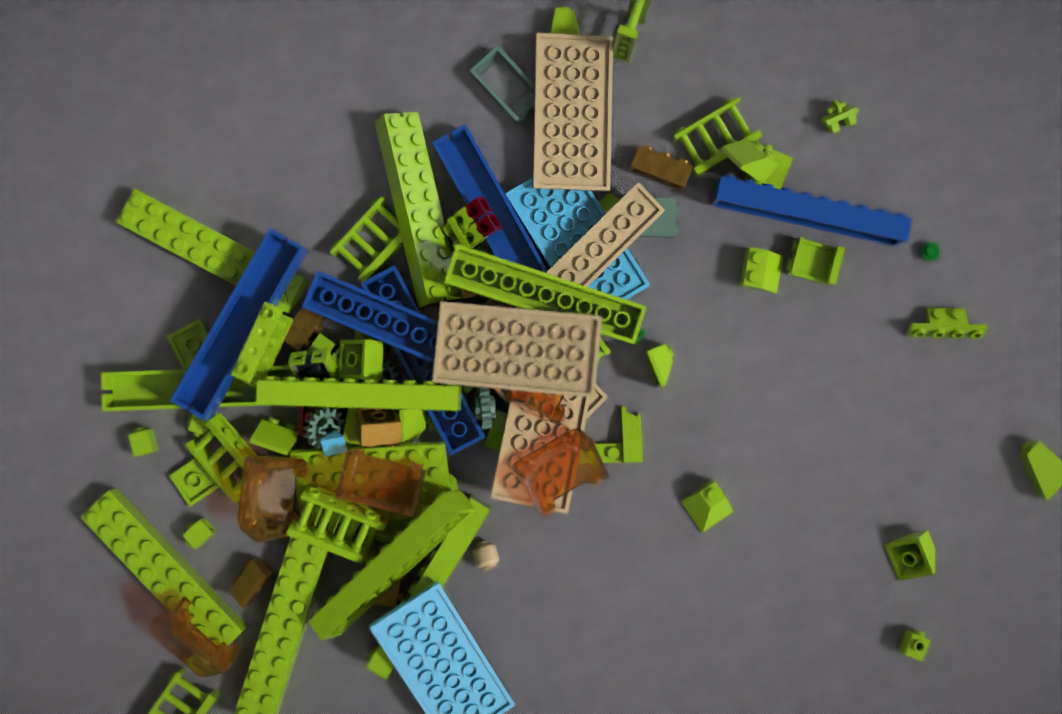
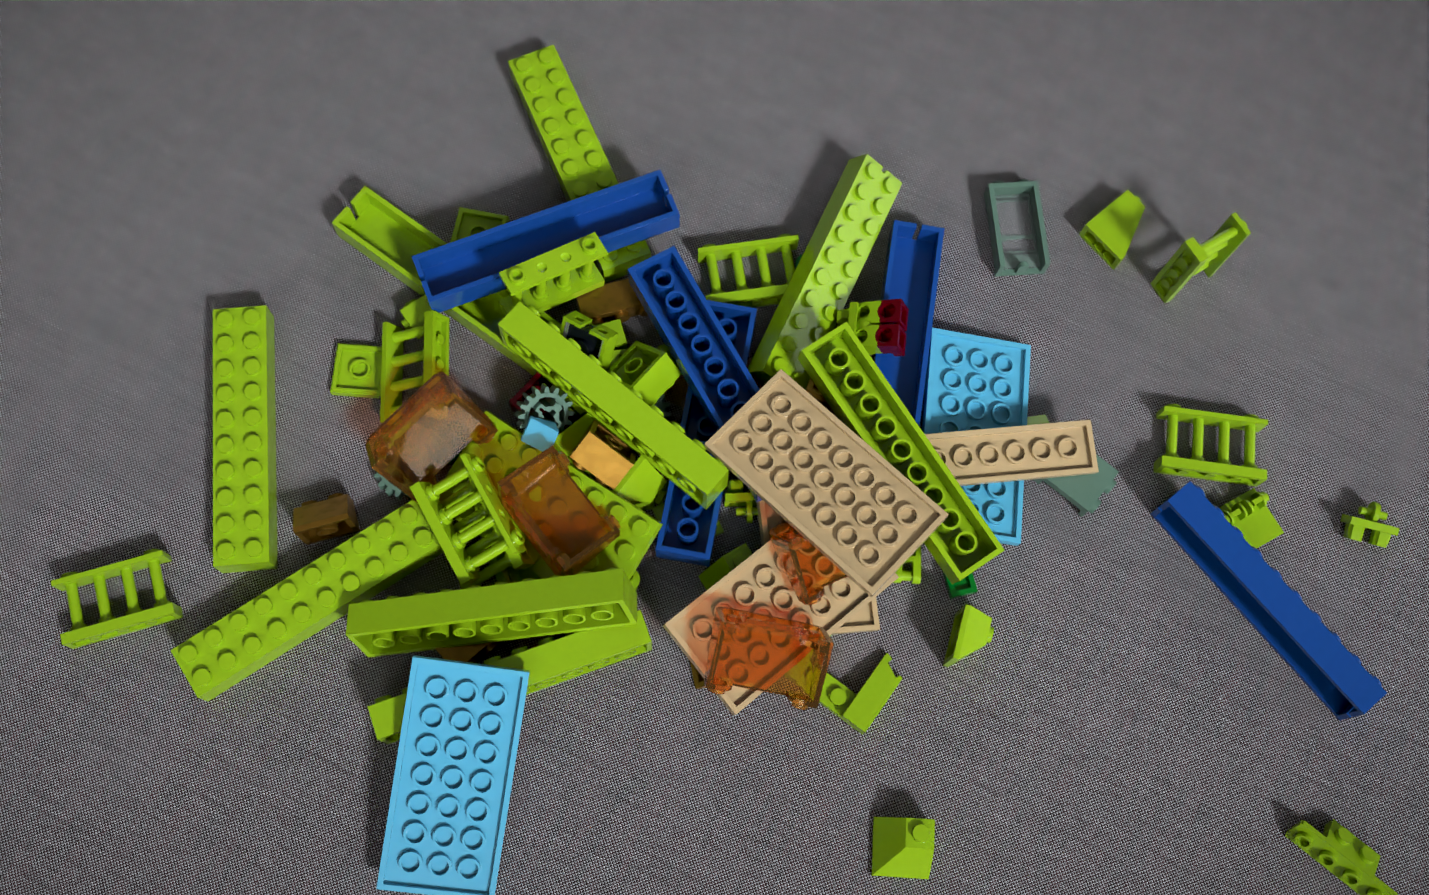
camera: 35 degrees right, 15 degrees down
(143, 441) = (343, 289): lime brick -> none
(189, 644) = (205, 528): clear orange windscreen -> none
(199, 533) = (315, 425): lime brick -> none
(276, 436) = (484, 387): lime slope -> none
(484, 407) = (734, 527): sand green gear -> none
(485, 556) = (601, 698): tan head -> none
(572, 112) = (1068, 302): tan plate -> none
(661, 167) = (1124, 430): pearl gold brick -> none
(751, 158) = (1238, 490): lime slope -> none
(761, 270) = (1161, 625): lime slope -> none
(815, 261) = (1231, 663): lime panel -> none
(930, 251) = (1380, 756): green plate -> none

